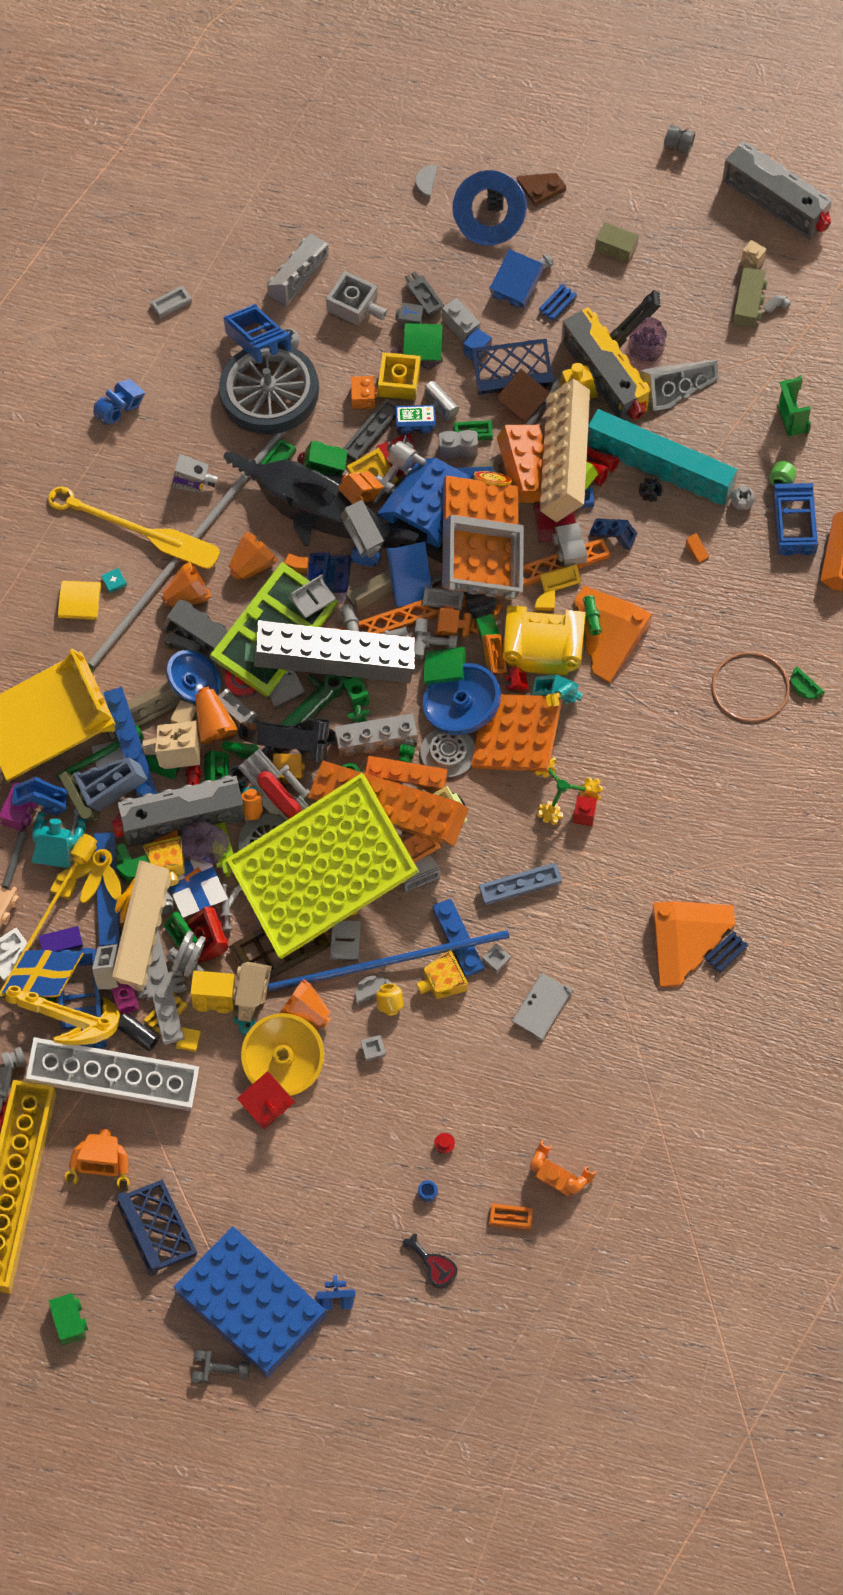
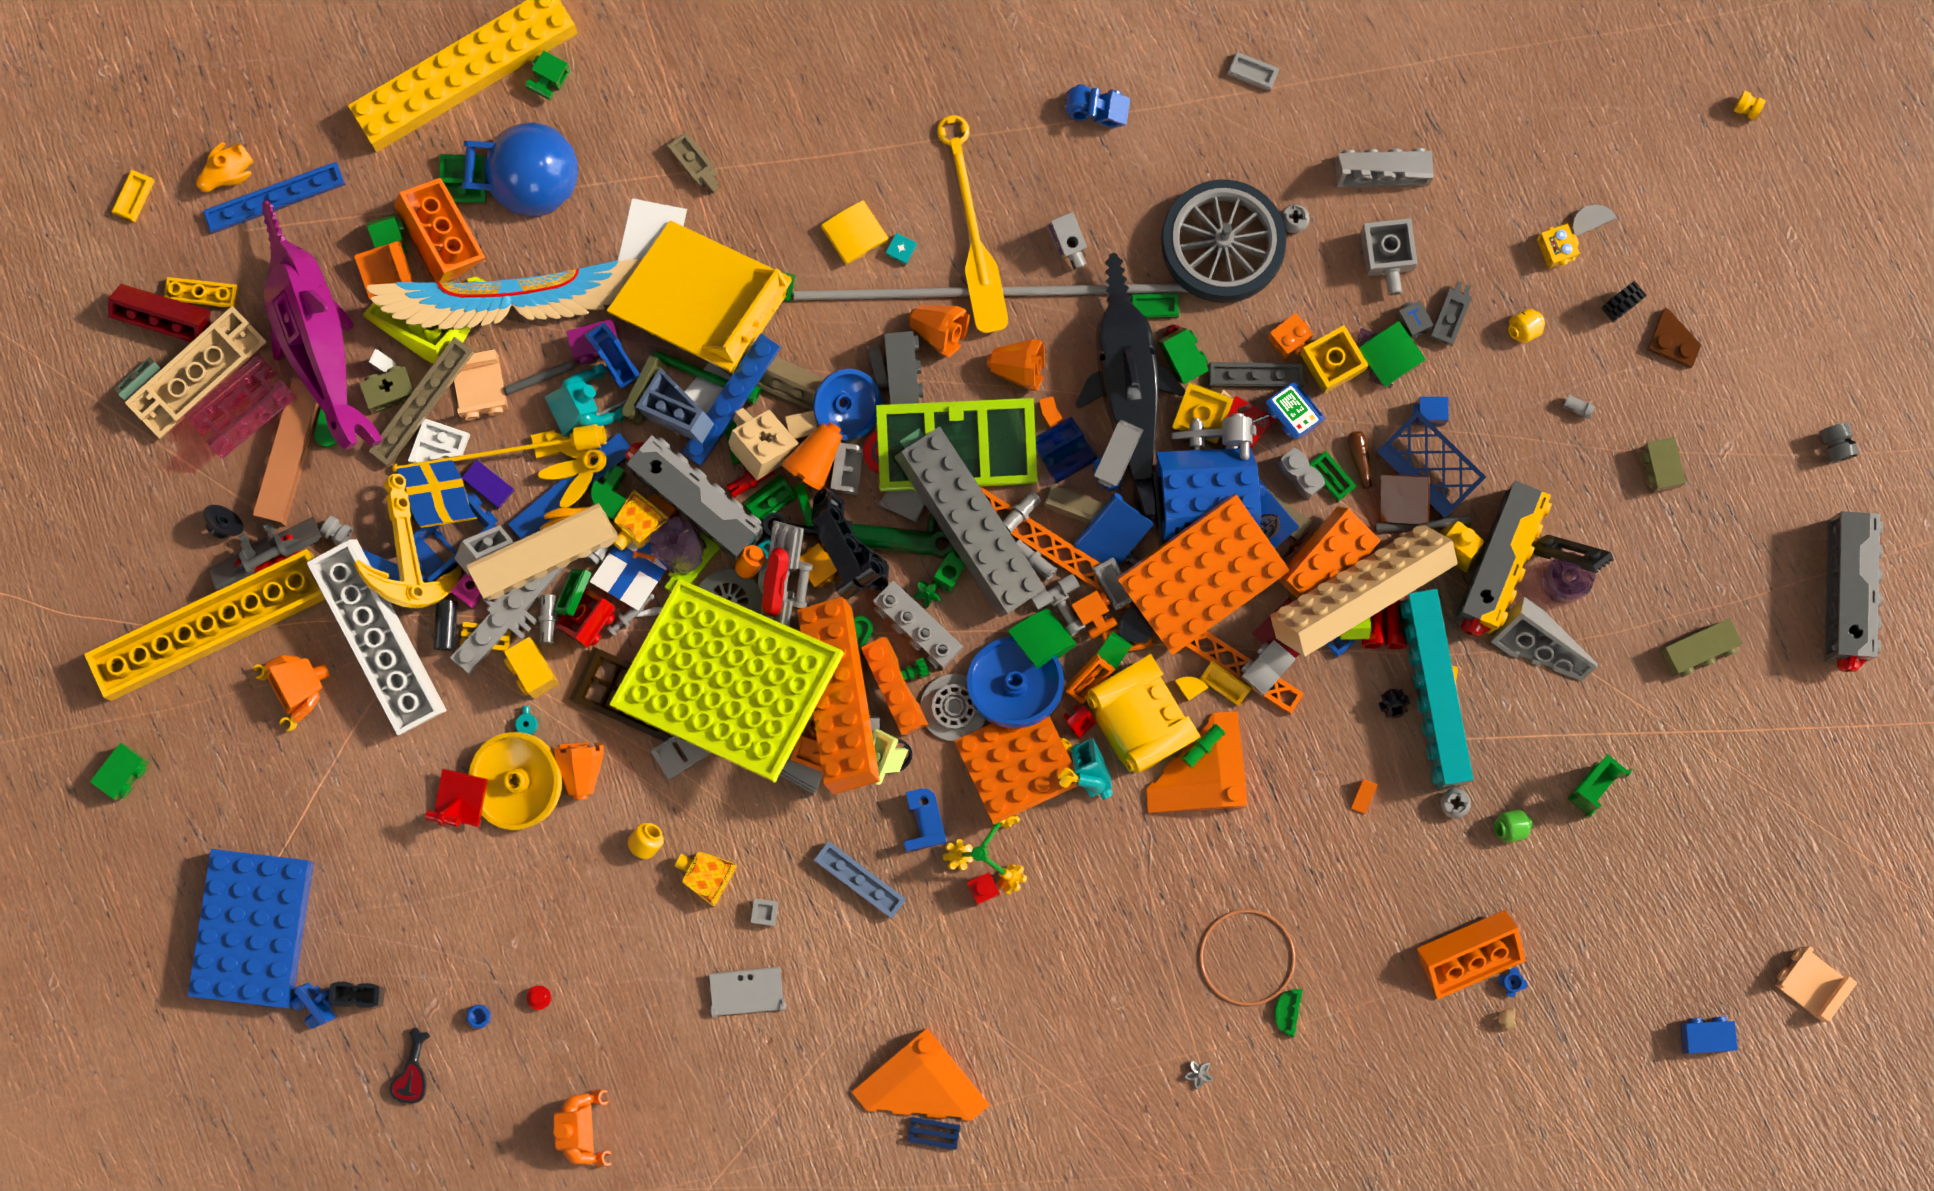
camera: 50 degrees right, 15 degrees up
(141, 1237) = (248, 775): dark blue fence -> none
(188, 953) = (545, 619): light grey wheel -> none
(190, 1041) = (475, 680): yellow tile -> none
(236, 321) = (1263, 200): blue door -> none
(241, 1370) = (181, 969): dark grey bar -> none
(251, 988) = (560, 701): tan hinge -> none
(319, 592) = (1028, 458): light grey piece -> none
(356, 1255) = (351, 994): none -> black brick
(360, 487) = (1169, 415): orange piece -> none
(368, 987) = (649, 812): light grey tile -> none
(373, 1048) = (586, 860): light grey plate -> none
(389, 960) = (687, 811): blue piece -> none
(426, 49) = (1744, 103): none -> yellow wheel
(429, 207) = (1558, 246): none -> yellow head
(442, 402) = (1340, 420): light grey brick -> none
(456, 931) = (761, 859): blue plate -> none
(459, 319) = (1447, 373): light grey brick -> none
(464, 215) = (1567, 300): blue plate -> none
(465, 257) = (1527, 325): none -> yellow head
(471, 404) = (1359, 450): none -> reddish brown piece
(485, 527) = (1201, 630): light grey window -> none
(492, 478) = (1280, 538): yellow piece -> none
(507, 1224) = (520, 1131): orange tile -> none
(511, 813) = (927, 820): none -> blue piece
(516, 279) = (1537, 395): blue brick -> none
(567, 291) = (1547, 464): blue tile -> none
(615, 528) = (1320, 699): dark blue bracket -> none
(753, 256) = (1753, 617): tan brick -> none
(777, 301) = (1719, 678): light grey arm -> none
(794, 493) = (1498, 854): blue door -> none
(807, 765) = (1199, 1074): none -> light grey plant

